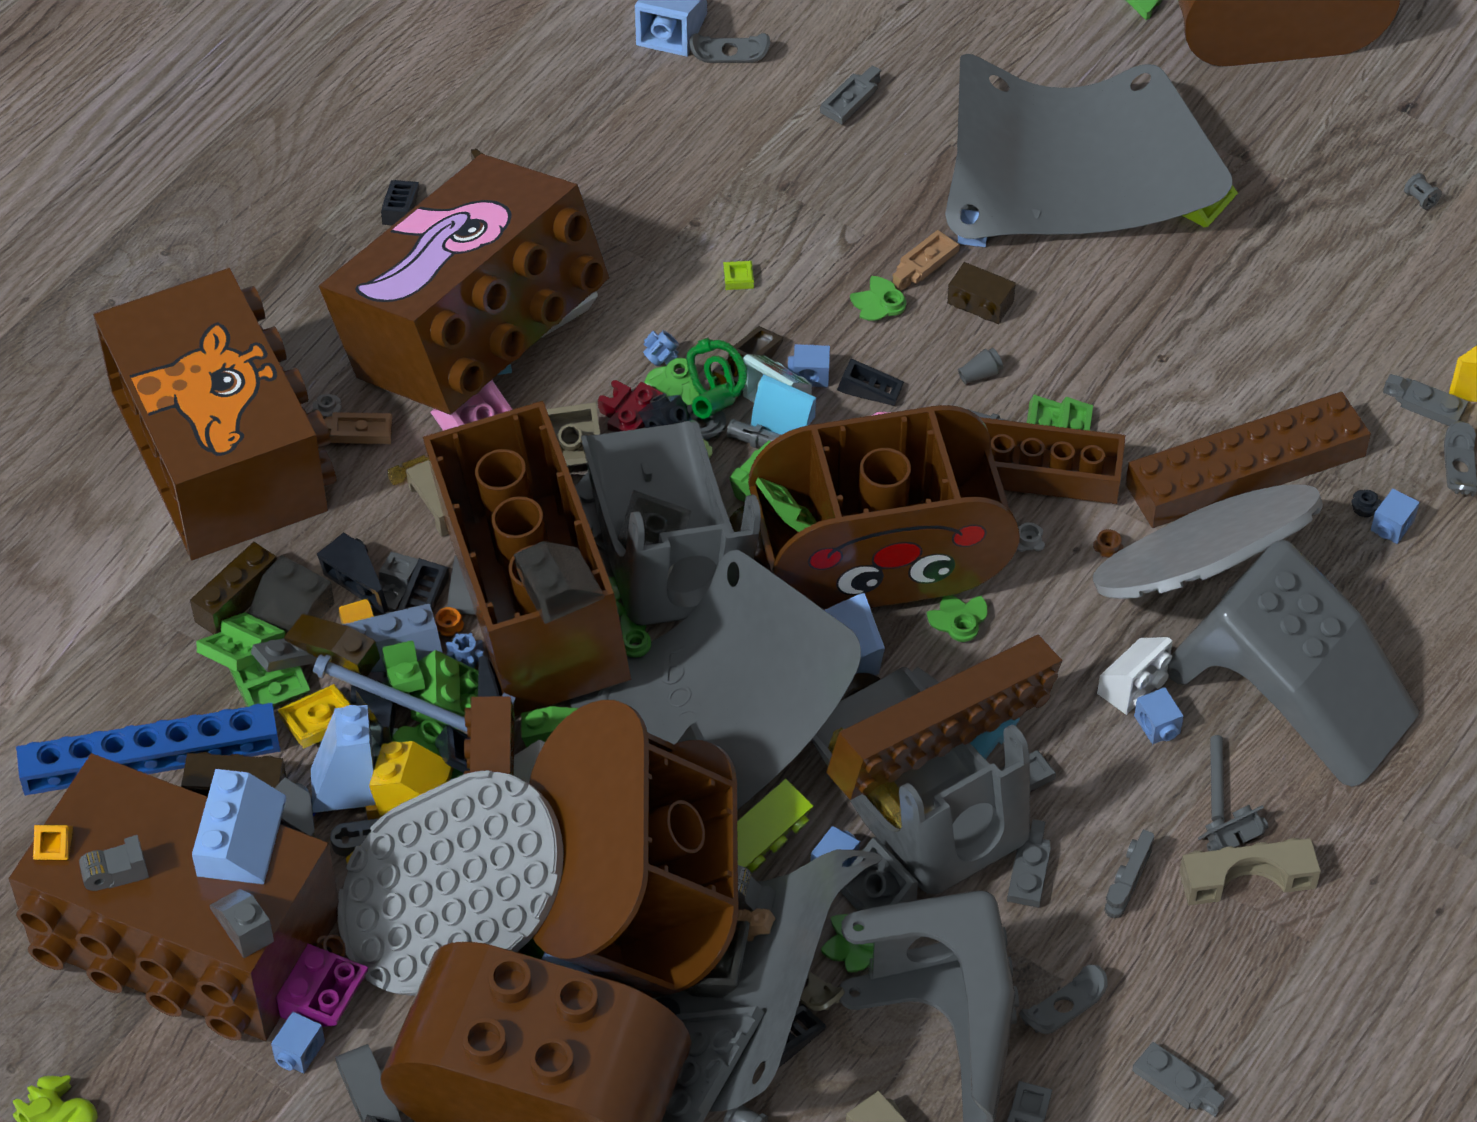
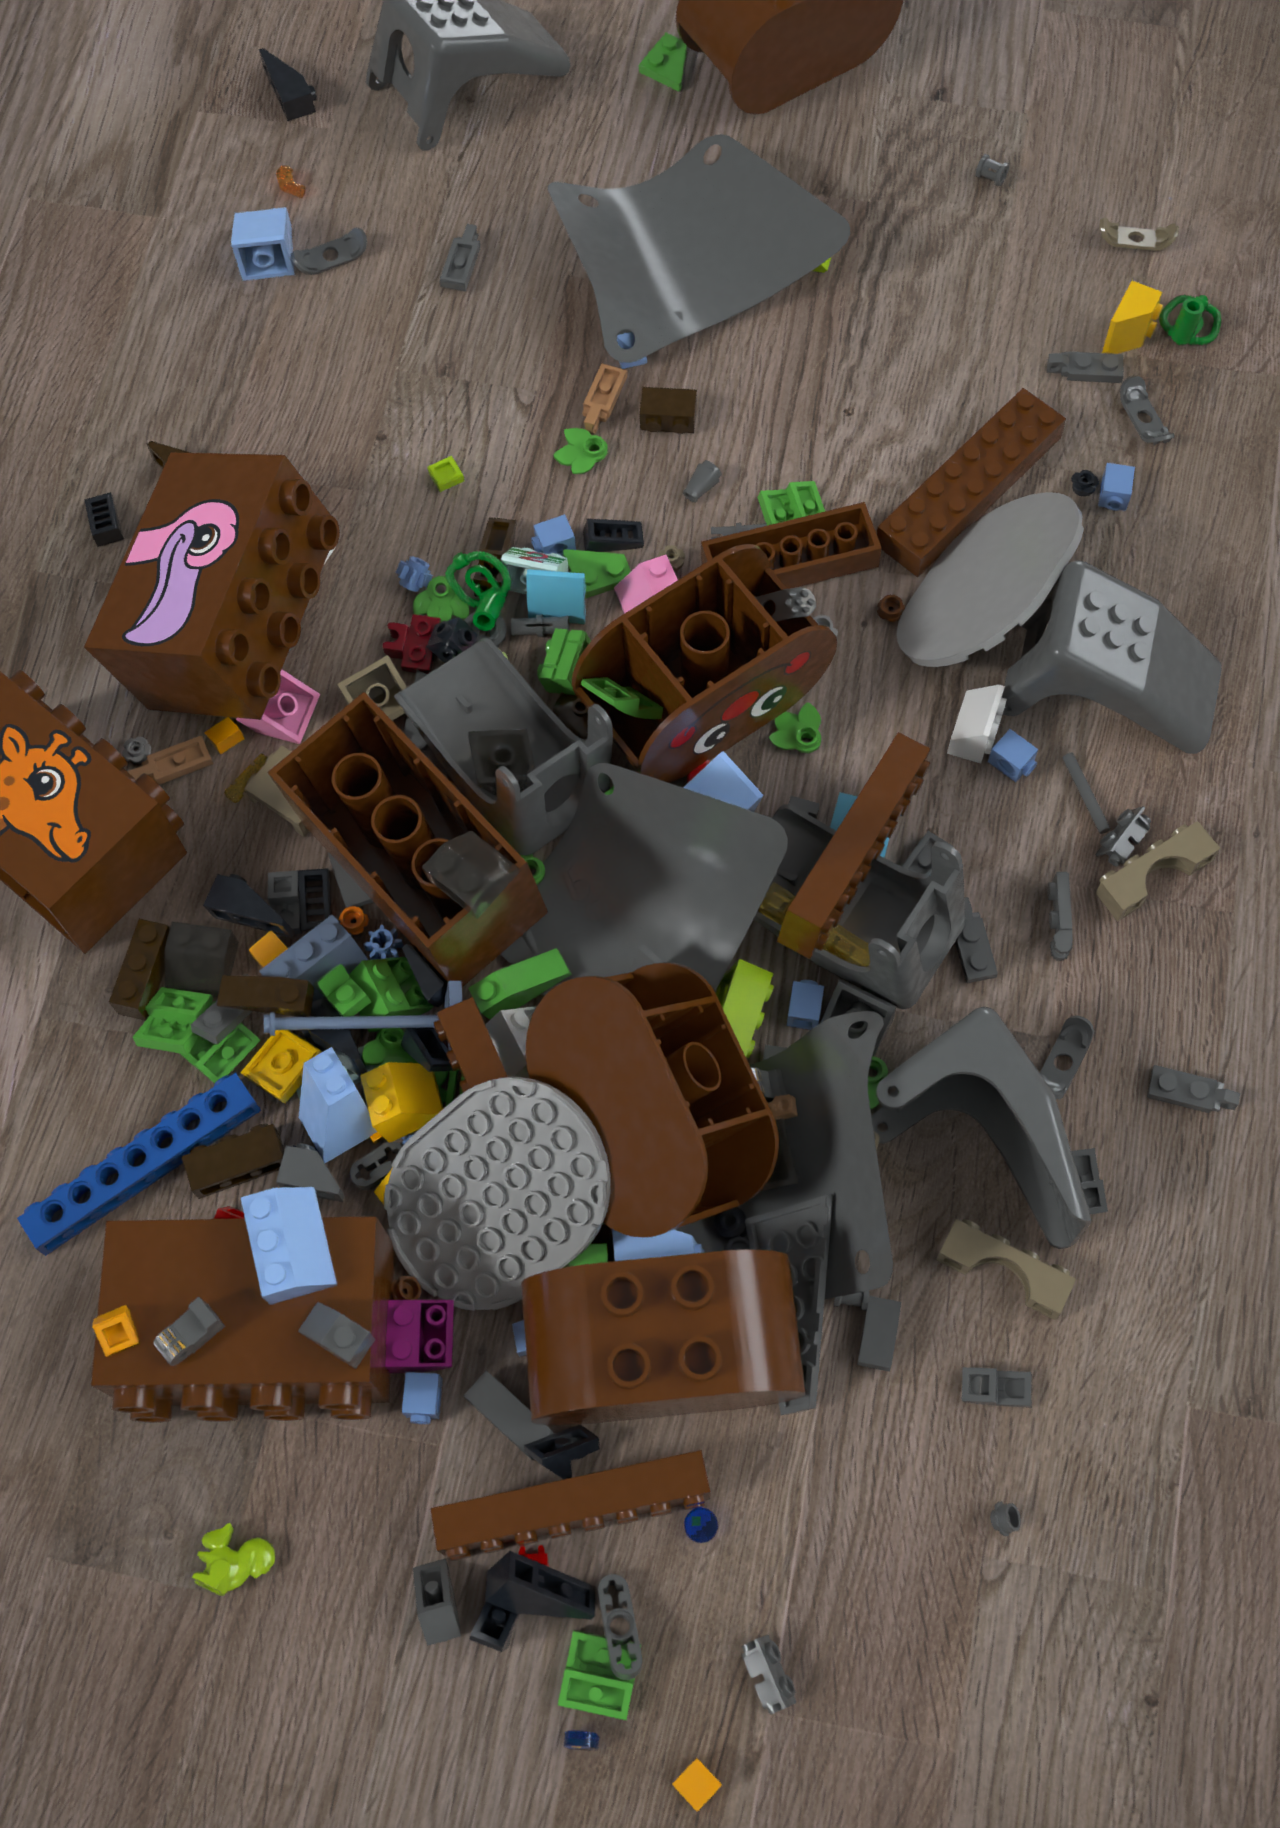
camera: 20 degrees left, 15 degrees up
(414, 424) = (224, 735): none -> light orange slope
(836, 404) = (601, 569): none -> bright green wing
(992, 485) = (790, 603): none -> dark grey piece

